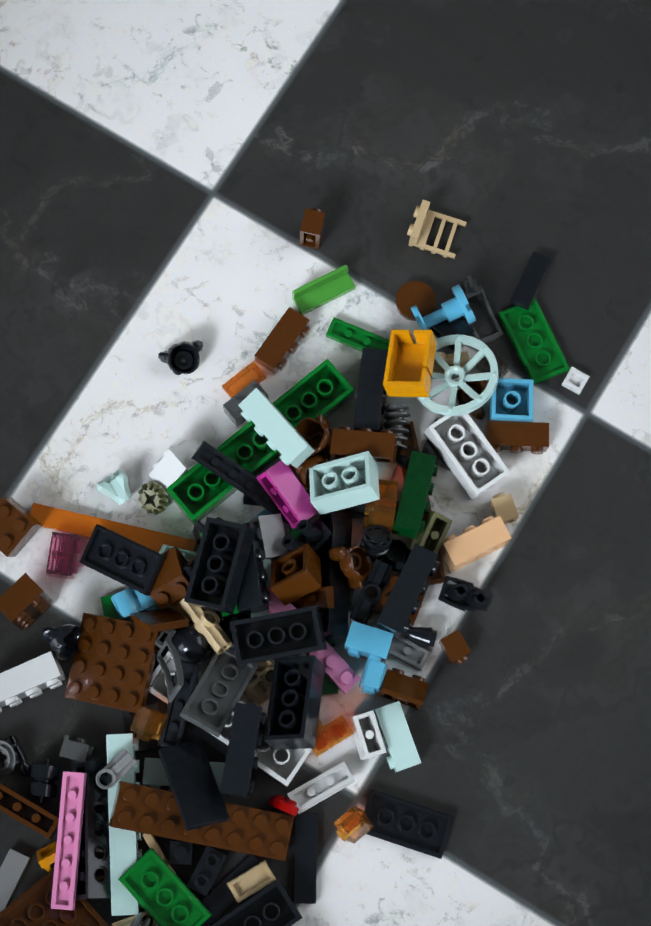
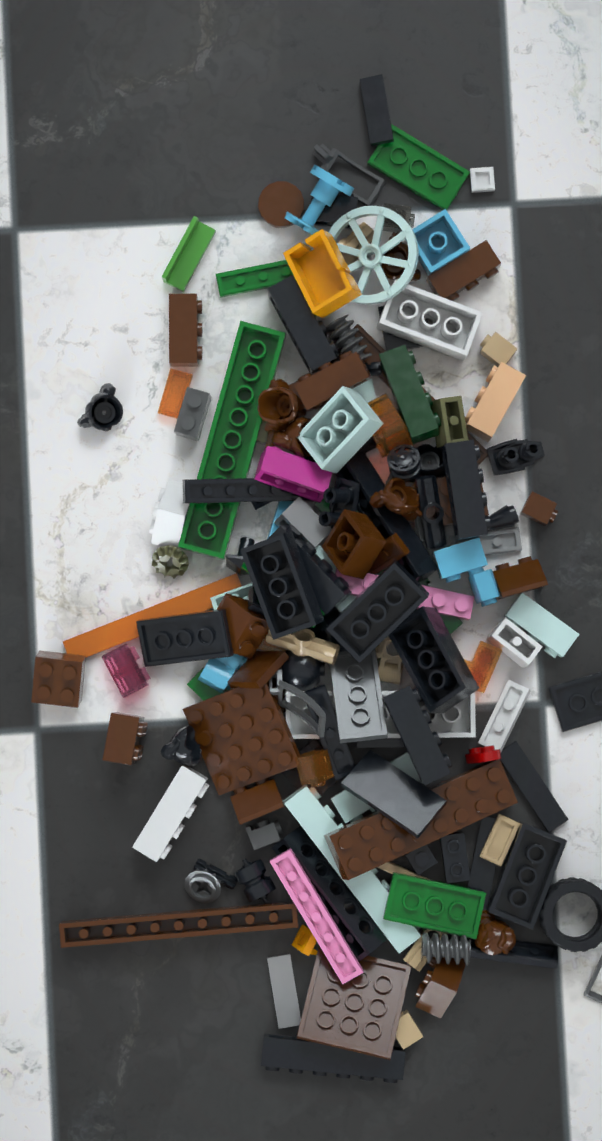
camera: 25 degrees left, 10 degrees up
(88, 720) = (256, 800): none -> reddish brown slope
(115, 487) = (128, 575): light aqua rock -> none
(117, 768) = (316, 825): light grey piece -> none
(276, 428) = (241, 421): light aqua brick -> none
(312, 228) = (137, 201): reddish brown brick -> none
(353, 825) = (555, 730): clear orange brick -> none
(420, 230) = (239, 131): tan plate -> none

